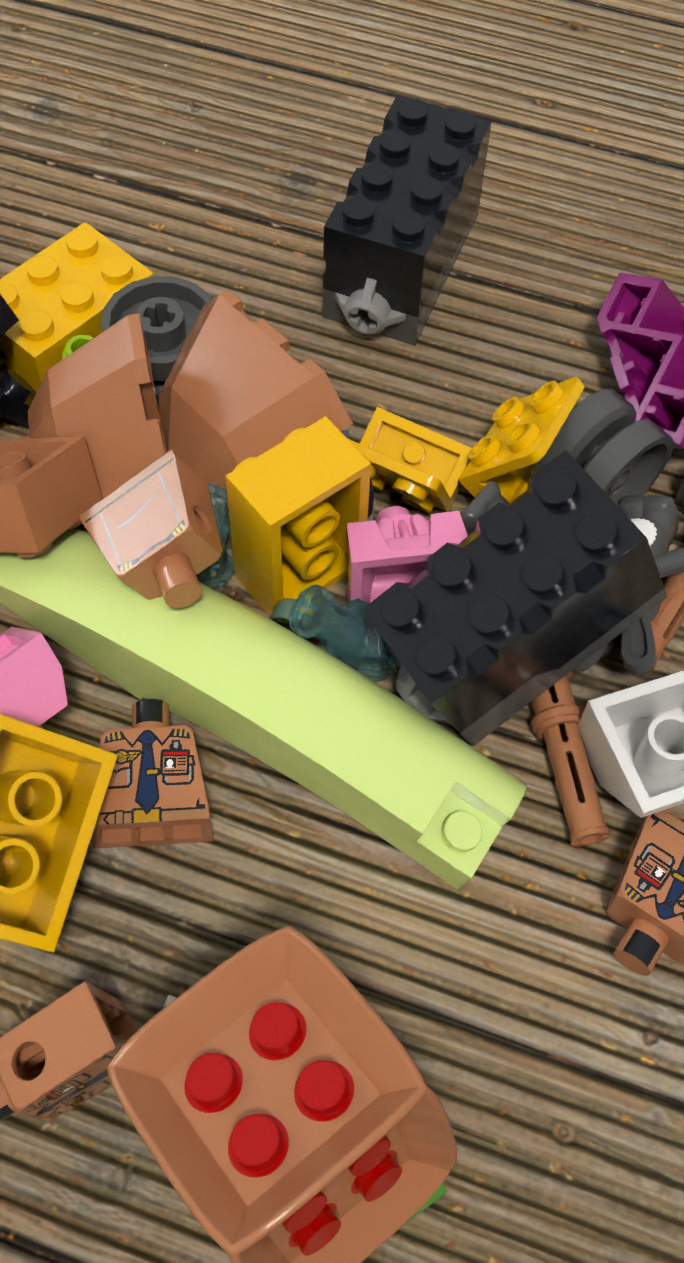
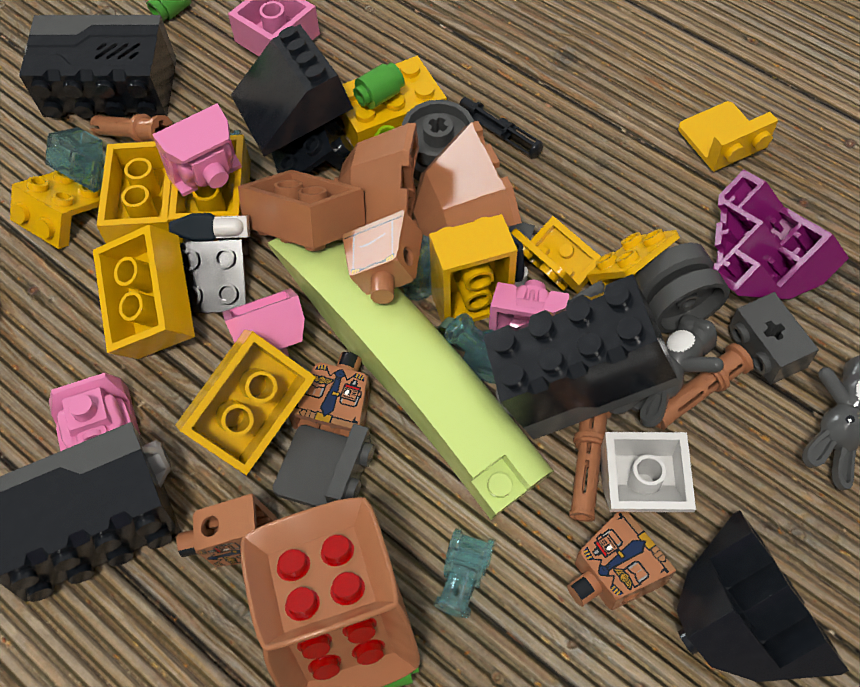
camera: 25 degrees right, 0 degrees up
(46, 276) = (378, 85): none -> bright green brick
(173, 897) = (324, 465): none -> dark grey bracket
(257, 303) = (503, 128): none -> black piece
(404, 220) = (616, 100): black piece -> none
(454, 974) = (464, 566): none -> clear light blue connector
(565, 237) = (726, 135): none -> yellow bracket

